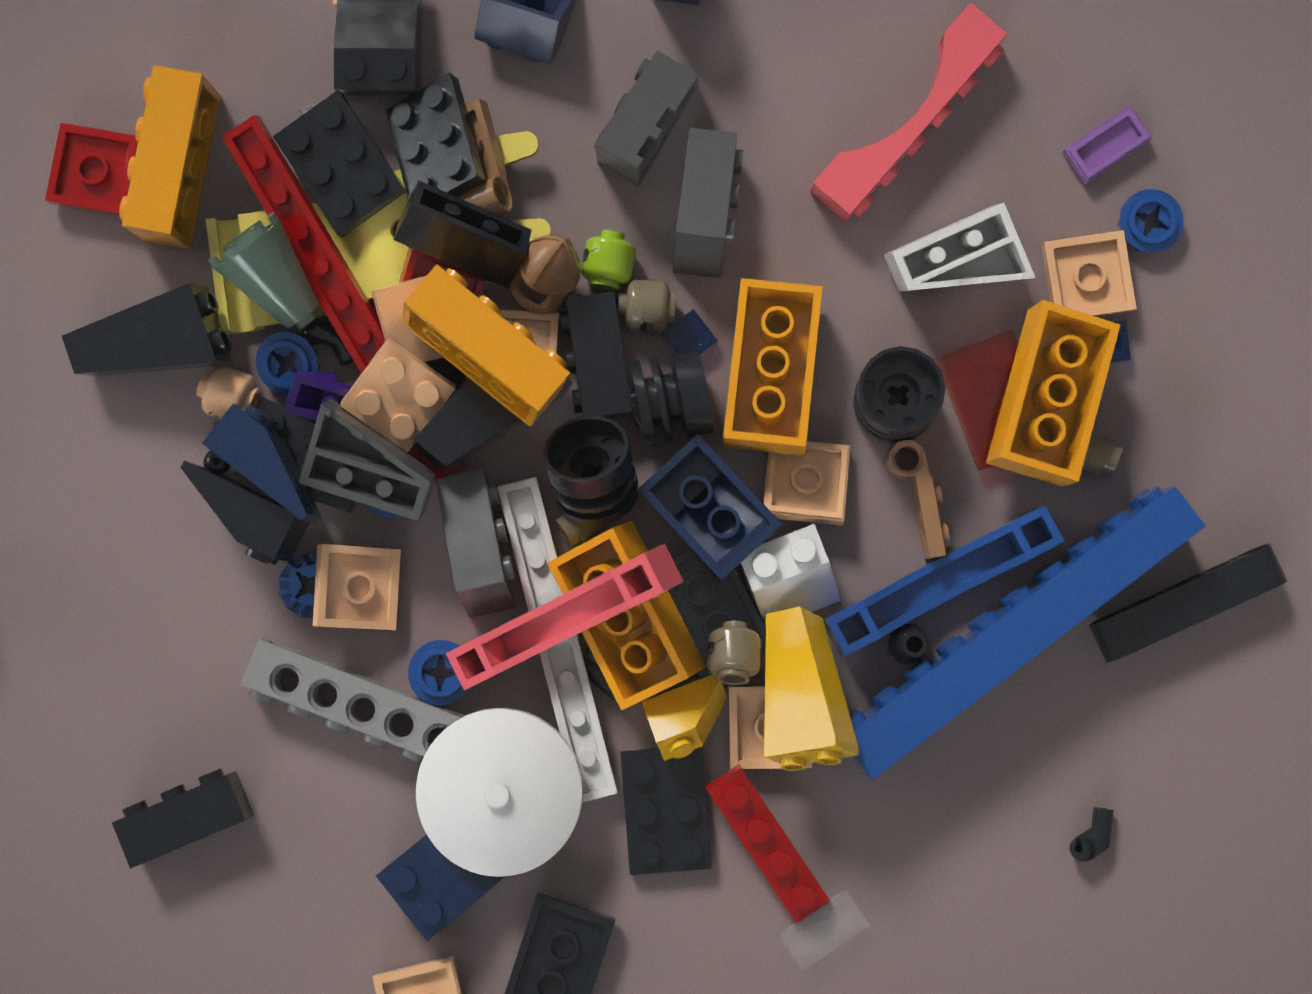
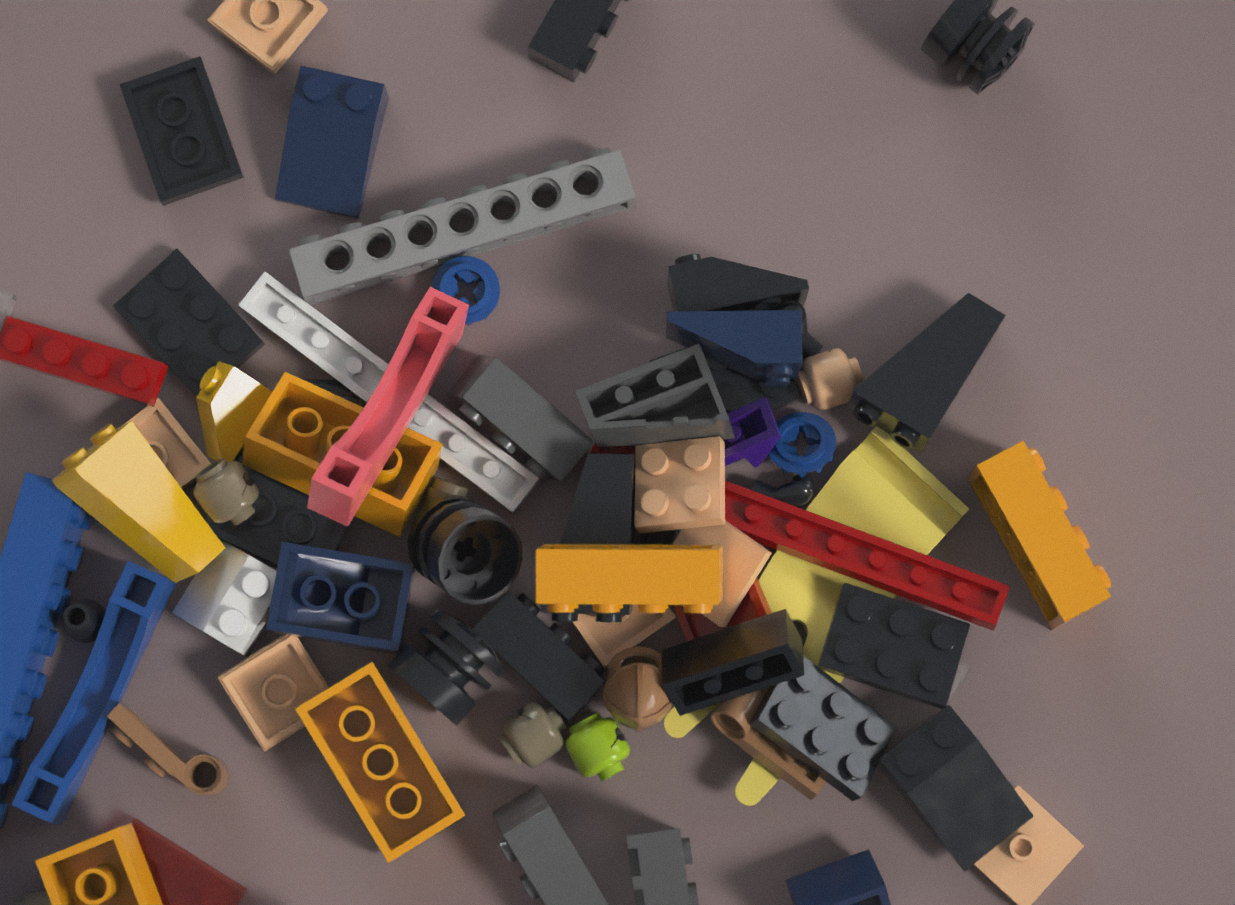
camera: 140 degrees right, 5 degrees down
(90, 169) = (1102, 477): red plate -> none
(269, 273) = (874, 502): sand green cone -> none
(291, 584) = (645, 292): blue gear -> none
(356, 587) = (589, 303): light nougat plate -> none
(499, 792) = (334, 228): white dish -> none
(690, 334) = (476, 738): clear blue tile -> none
(895, 372) = (232, 841): black wheel -> none

